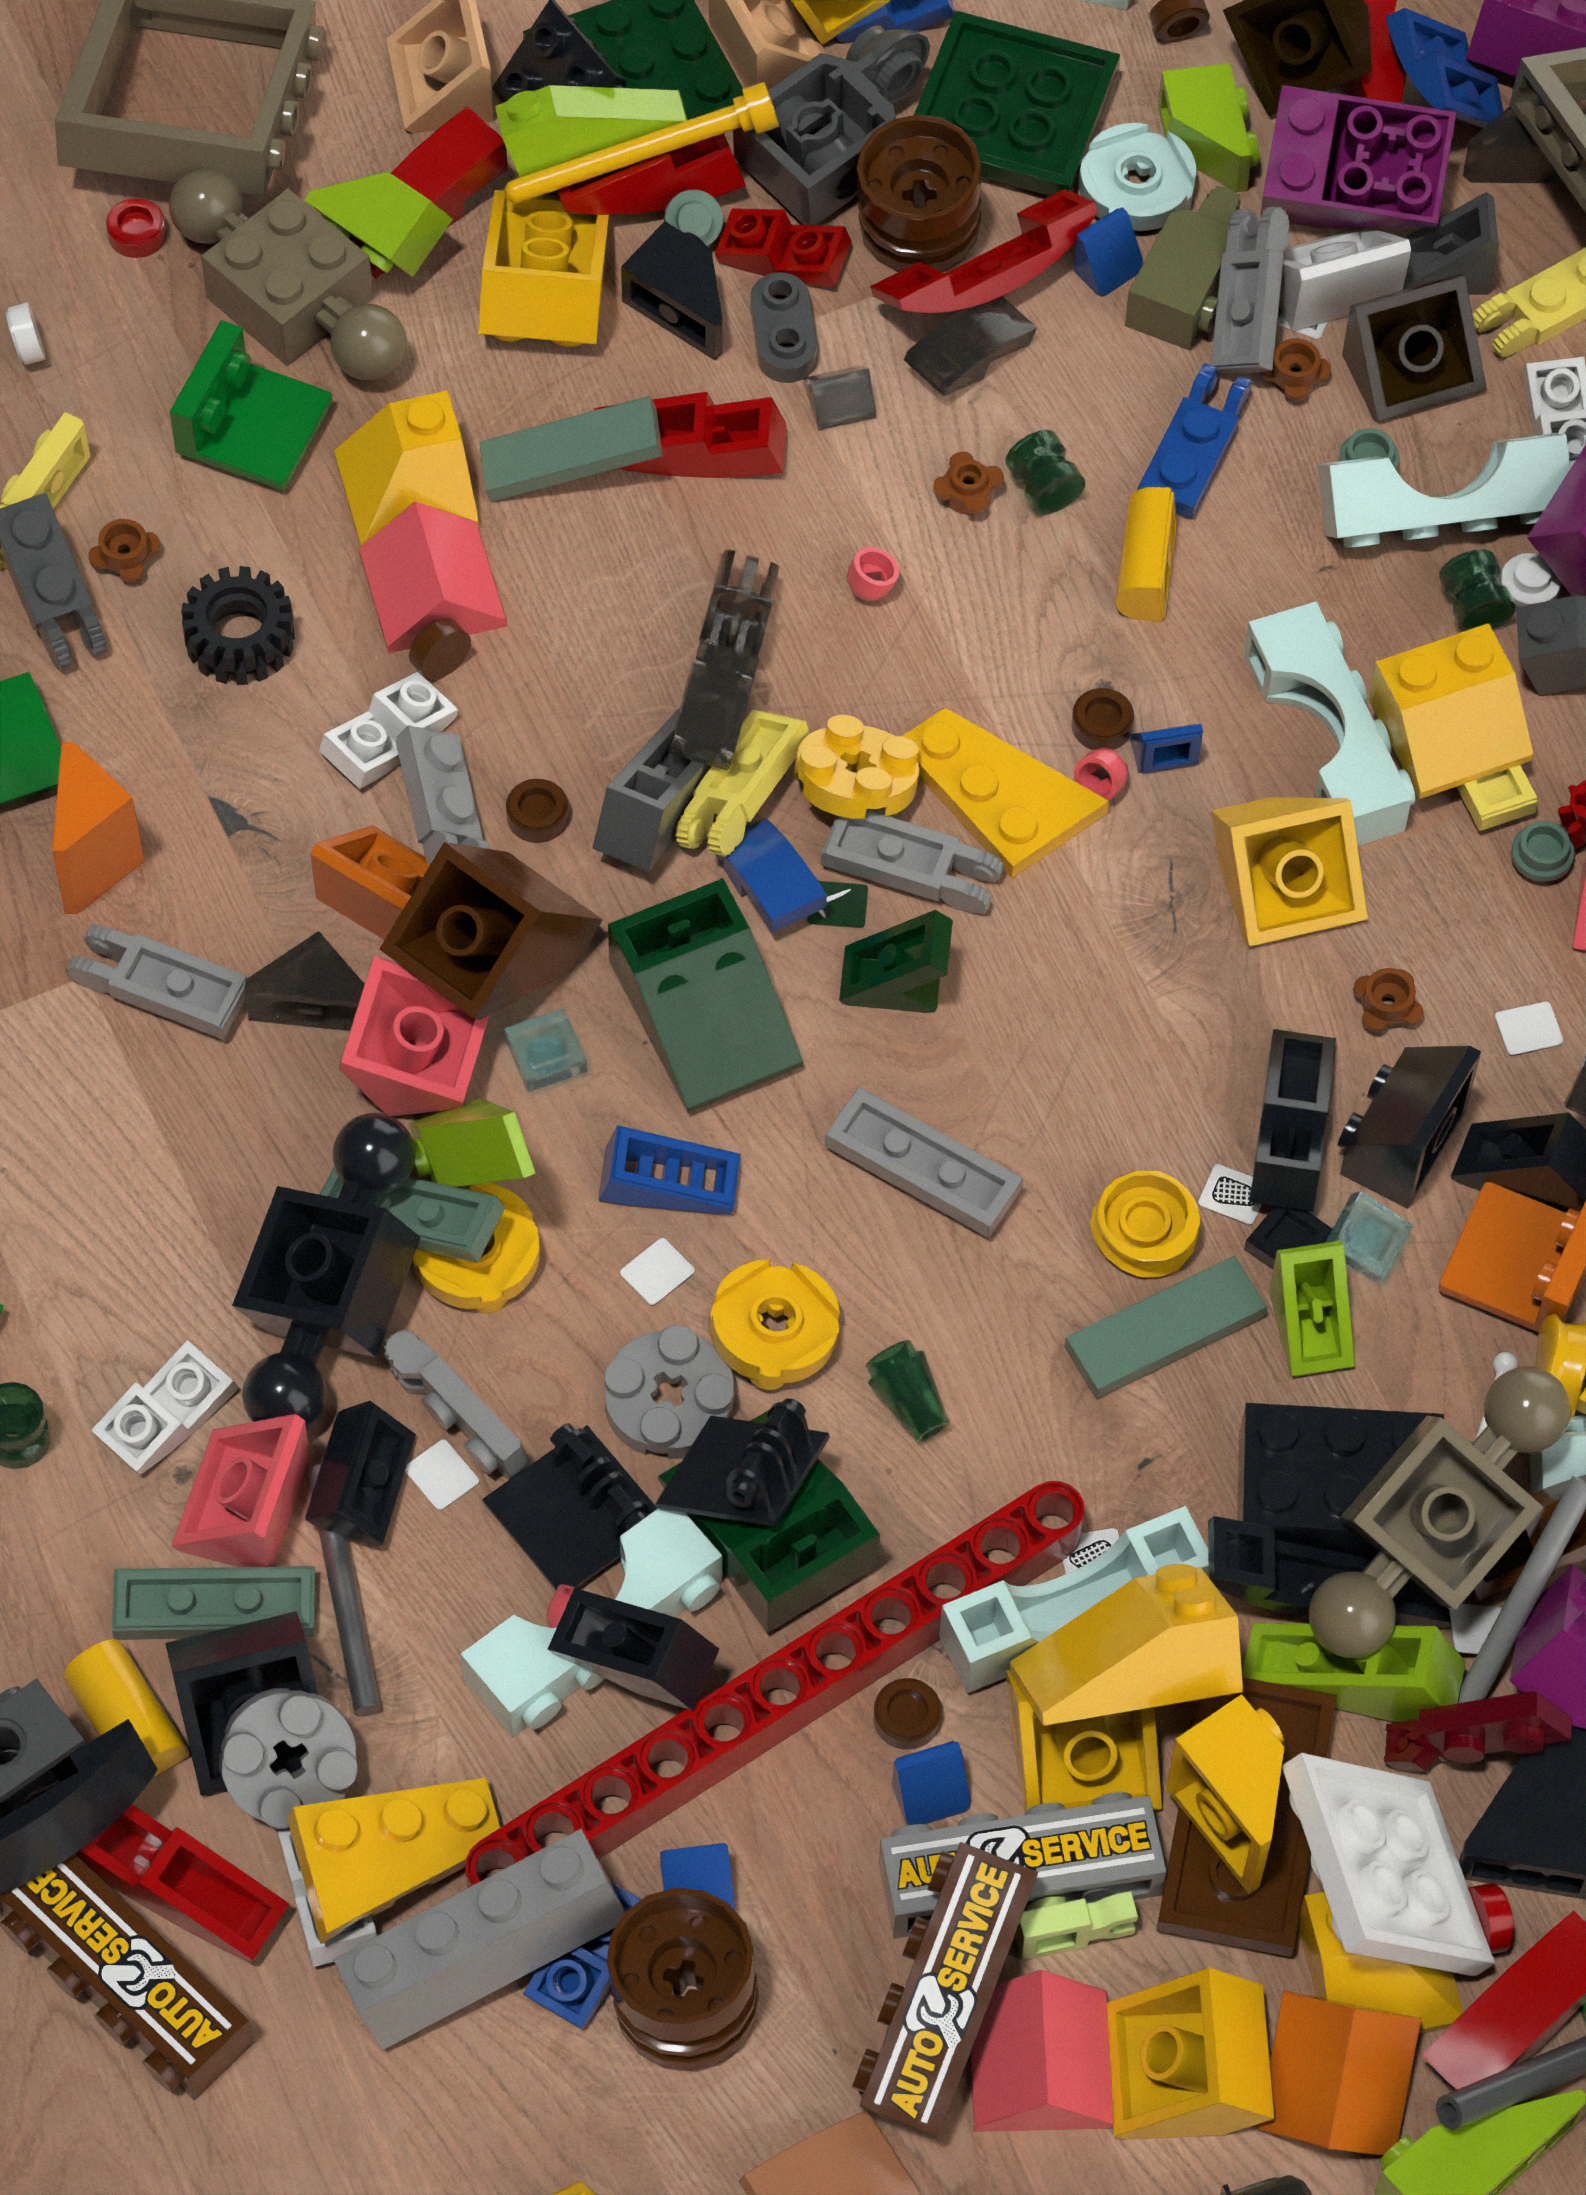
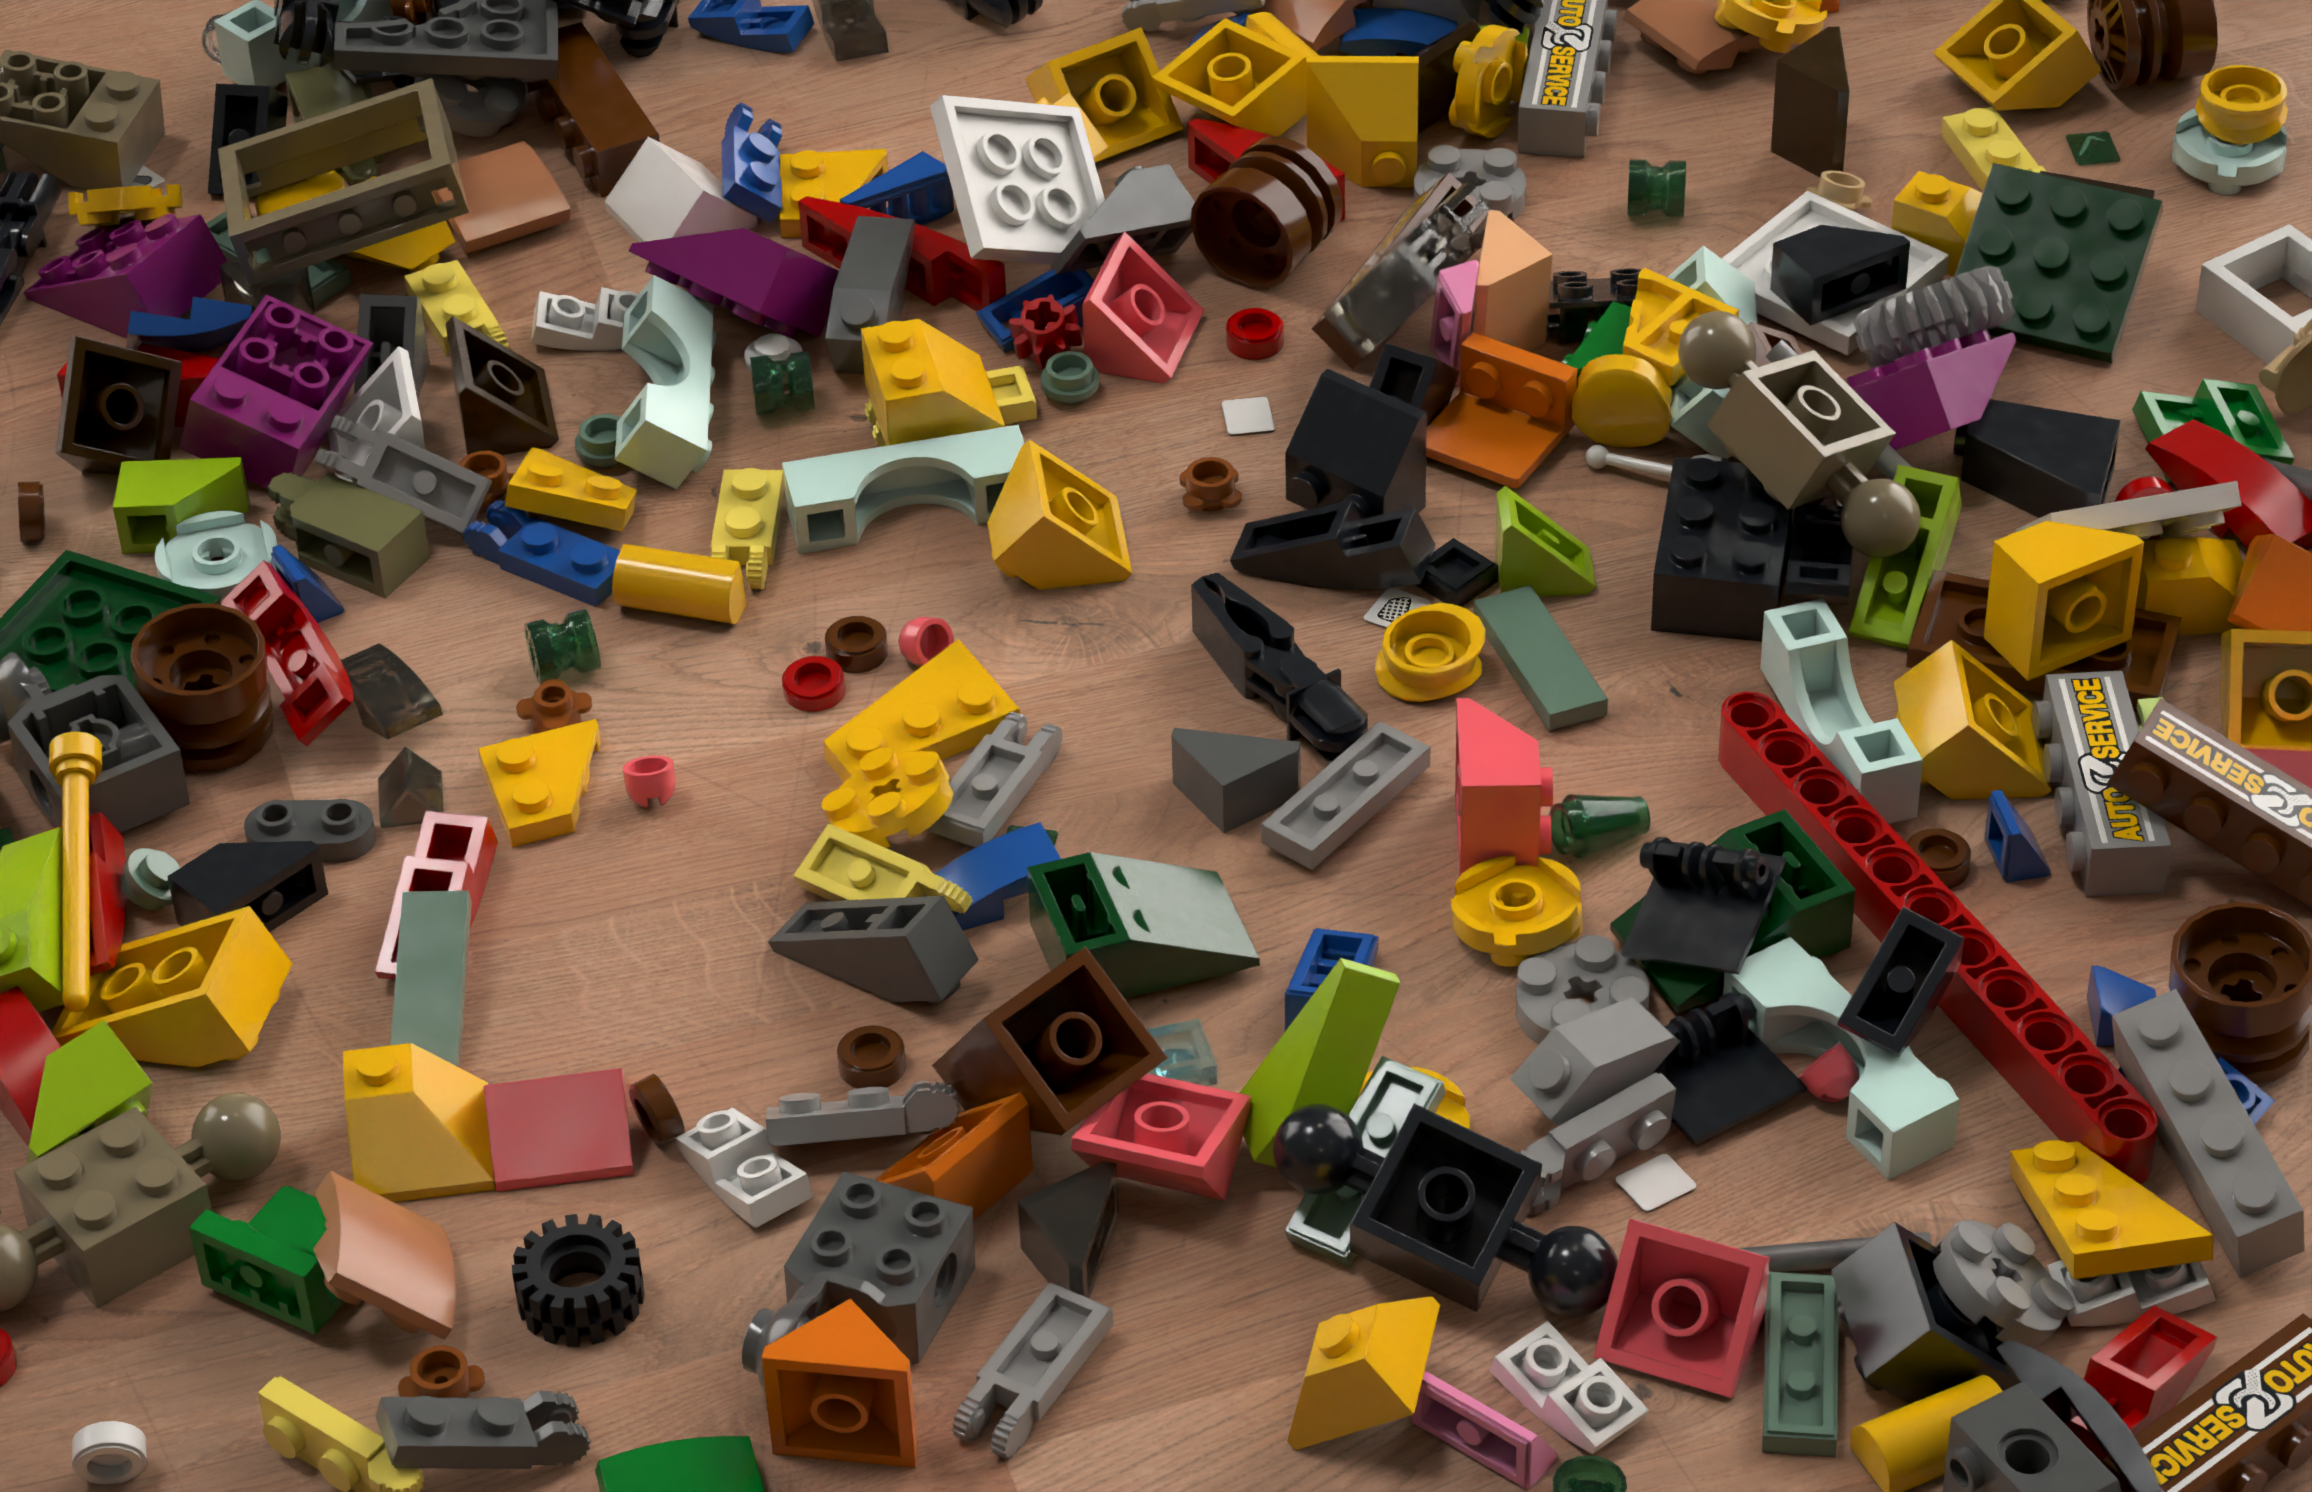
camera: 80 degrees left, 20 degrees down
(114, 1338) = (1482, 1432): none -> bright pink slope
(145, 1220) = (1364, 1370): none -> yellow slope
(224, 472) = (386, 1257): none -> nougat slope
(236, 830) = (887, 1251): none -> dark grey brick
(361, 1474) = (1611, 1214): black slope -> none
(527, 1386) = (1593, 1059): none -> light grey slope
(657, 1271) = (1435, 1007): white sticker -> none
(724, 665) = (758, 881): clear smoke arm -> none
(768, 244) = (212, 813): red slope -> none
(871, 492) = (540, 780): none -> yellow wing
(897, 1275) = (1499, 790): none -> coral slope
(898, 965) = (1124, 783): dark green slope -> none
(924, 1057) = (1234, 775): none -> dark grey slope
(1041, 693) = (813, 684): none -> red tile
(1087, 1088) = (1263, 660): none -> black arm
(1135, 1650) = (1924, 637): yellow slope -> none
(1167, 748) = (897, 593): blue slope -> none
(1253, 595) = (749, 520): none -> light yellow hinge
(1277, 437) = (569, 492): none -> yellow wing
(1370, 1235) = (1462, 514): clear light blue plate -> none
(1475, 1728) = (1983, 482): dark red hinge -> none

